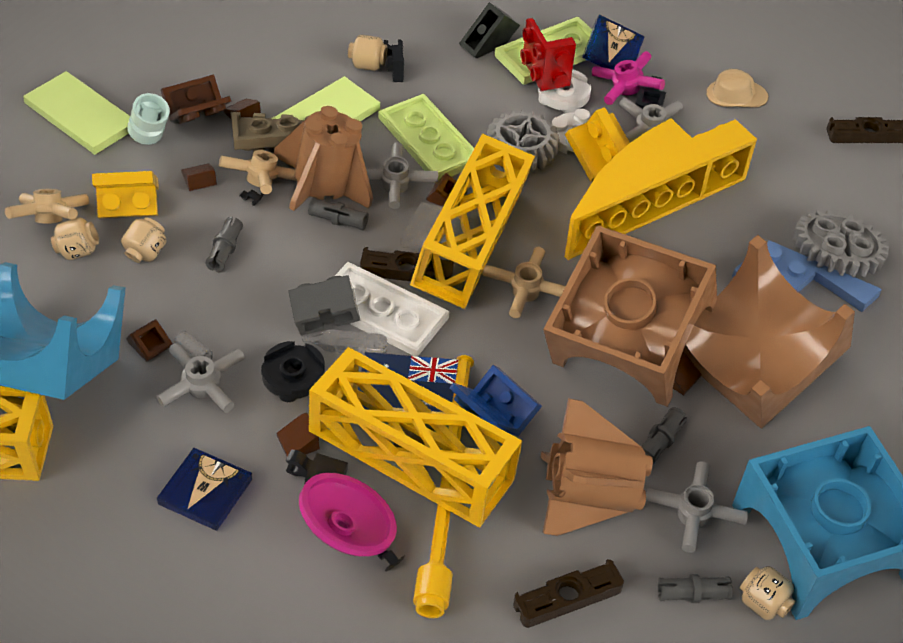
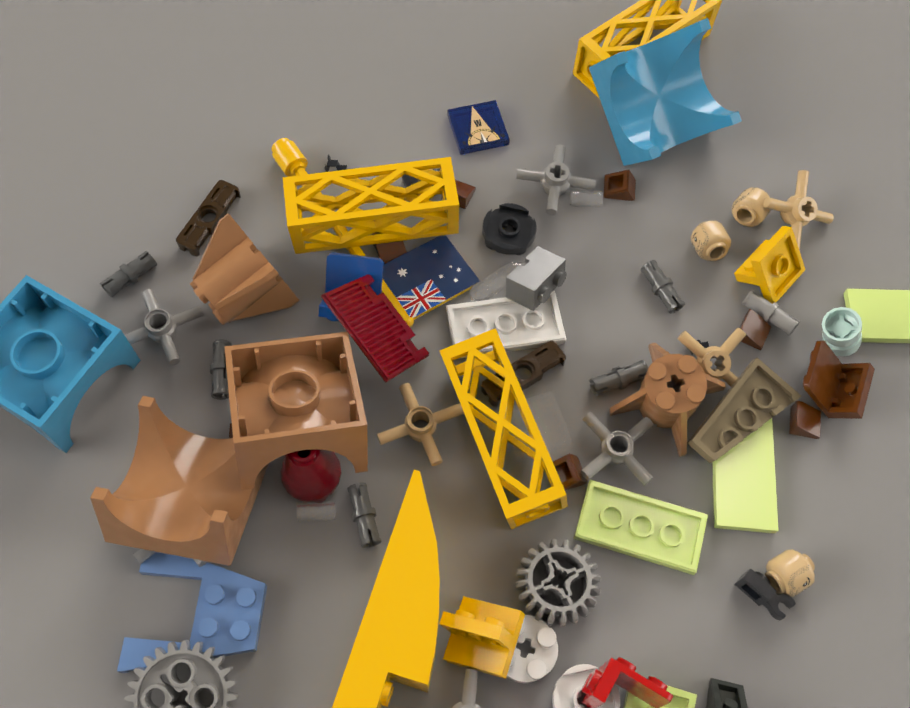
camera: 140 degrees right, 15 degrees up
(171, 173) = (771, 312): none -> light grey pin
(347, 514) = (369, 135): dark pink dish -> none
(511, 342) = (375, 327): none -> dark red window
(767, 593) = (77, 290): tan head -> none

